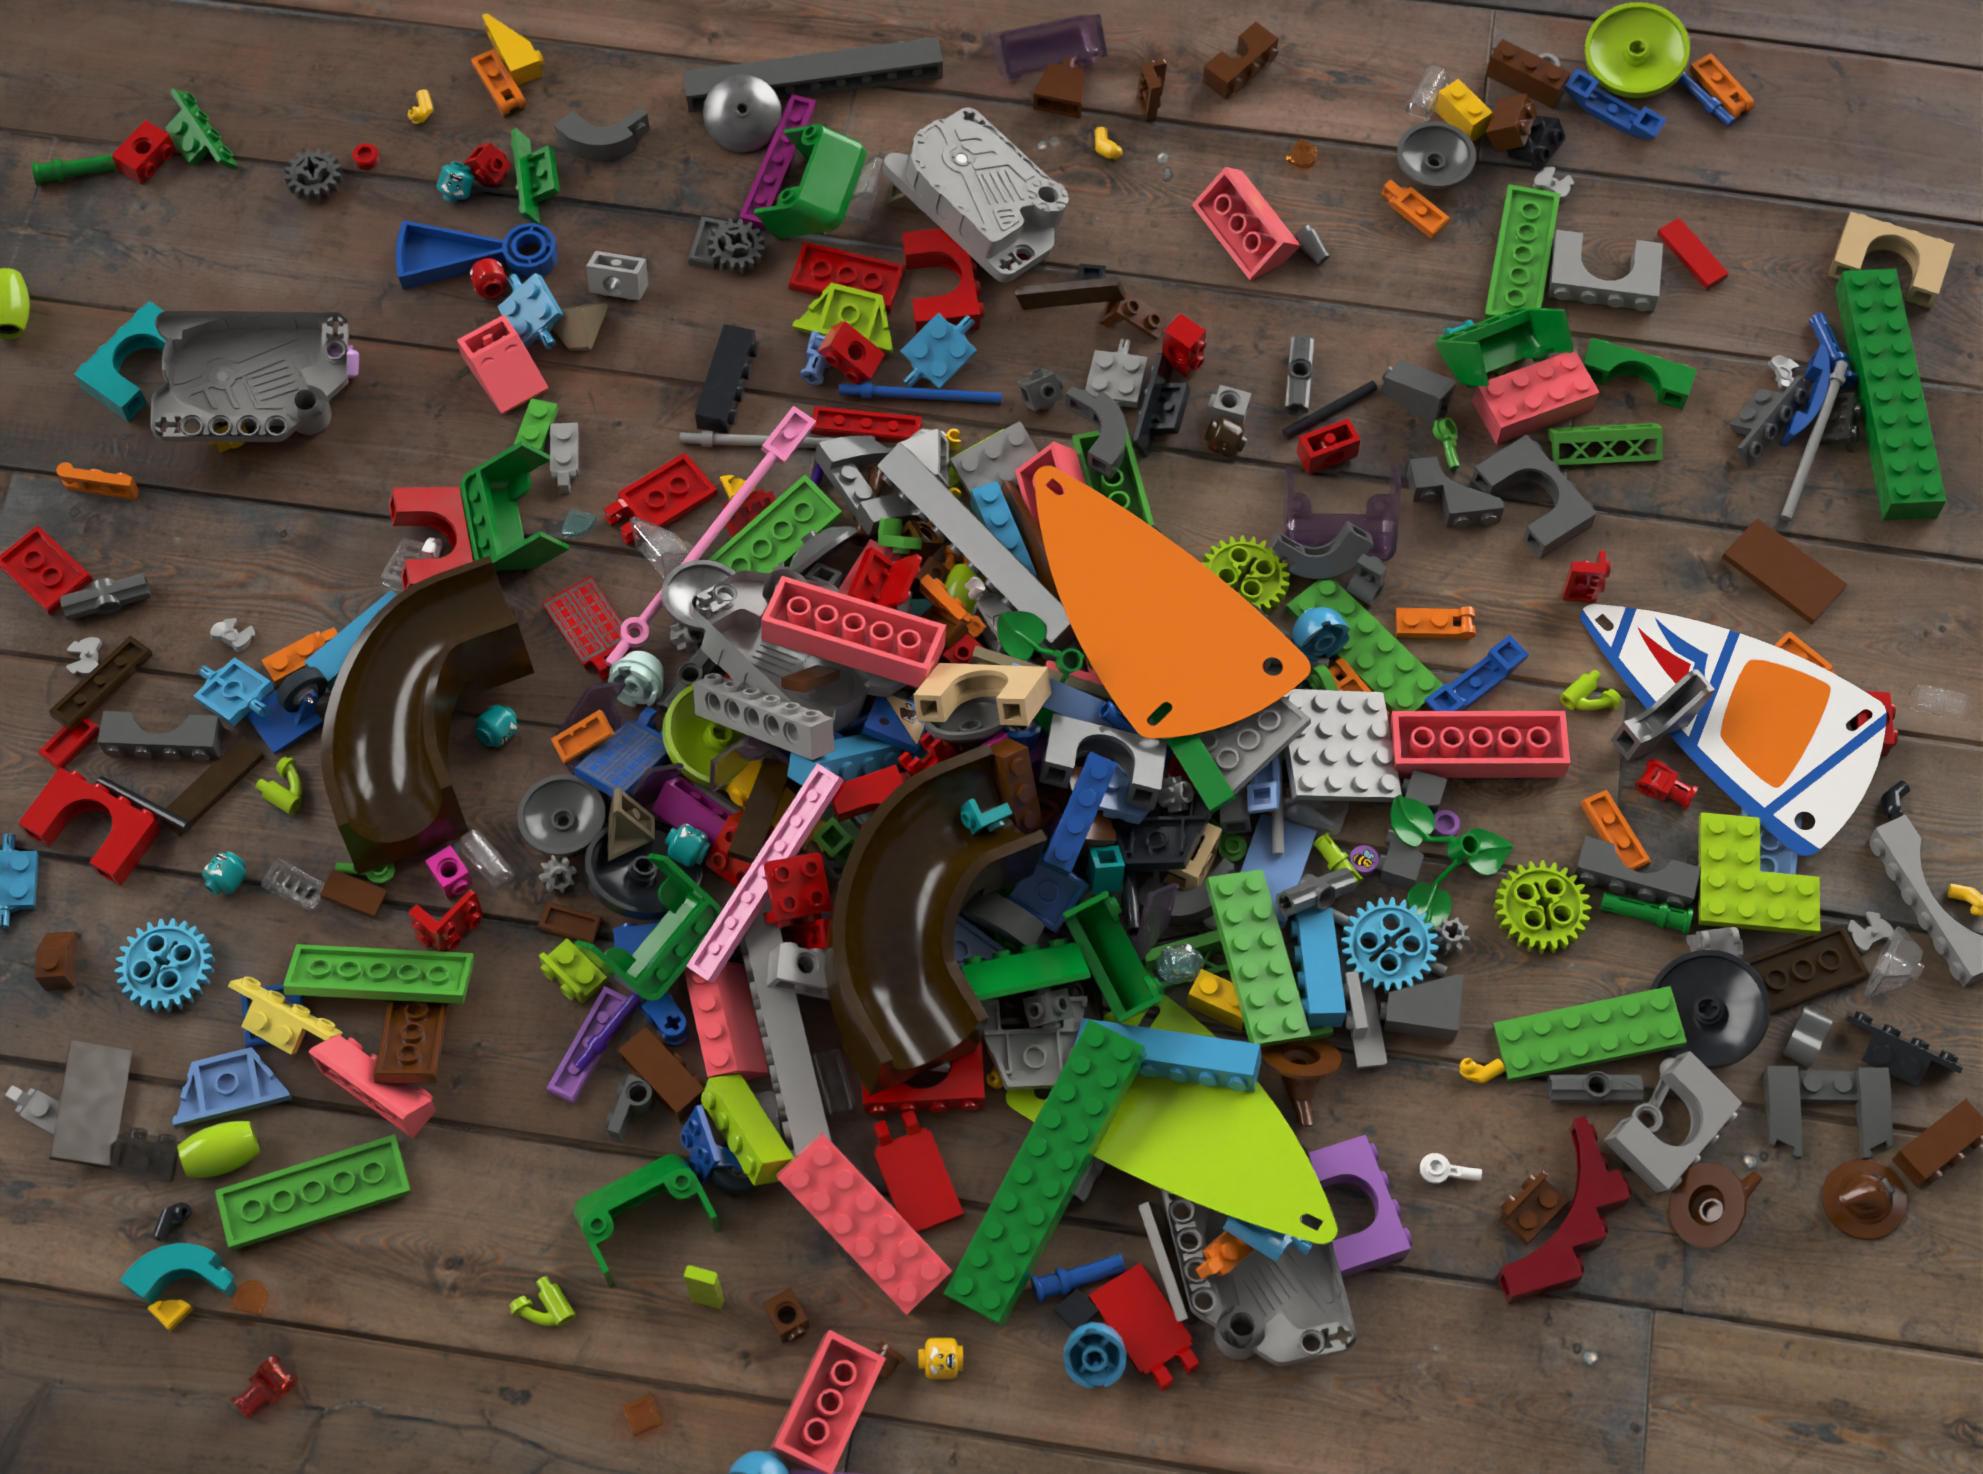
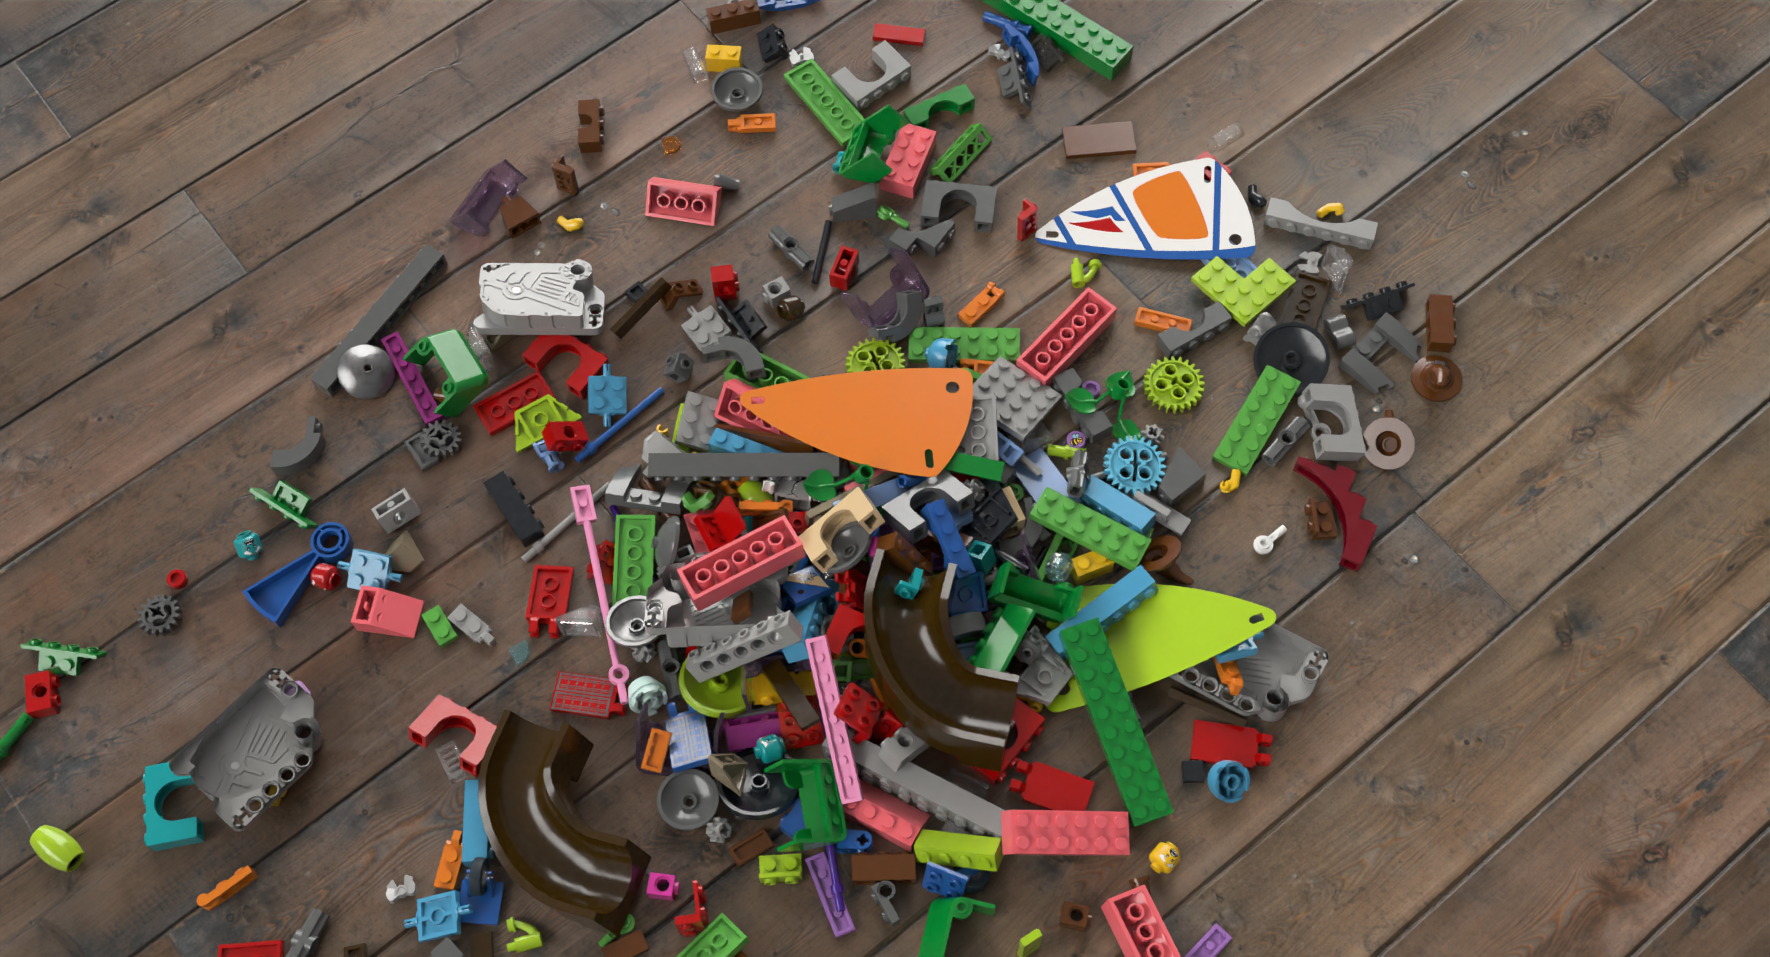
camera: 45 degrees left, 0 degrees up
(424, 109) = (182, 526): yellow arm -> none
(432, 548) = (460, 740): white tile -> none
(486, 859) = (673, 861): clear brick -> none
(488, 164) = (256, 519): red brick -> none
(493, 513) = (472, 691): green windscreen -> none
(496, 726) = (599, 791): teal head -> none
(498, 81) = (209, 474): orange plate -> none
(514, 51) = (199, 451): yellow slope -> none
(732, 485) = (580, 557): yellow tile -> none
(849, 422) = (611, 463): red tile -> none
(1063, 1281) = (1173, 763): blue pin -> none
(1385, 1238) = (1278, 594): medium lavender arch -> none
(1480, 678) = (1030, 310): blue slope -> none
(1511, 122) = (754, 43): reddish brown brick -> none
(1660, 914) = (1223, 339): green pin -> none
(1664, 784) = (1158, 280): red connector -> none
(1668, 714) = (1129, 249): dark grey arch -> none
(1836, 380) = (1028, 34): light grey bar -> none

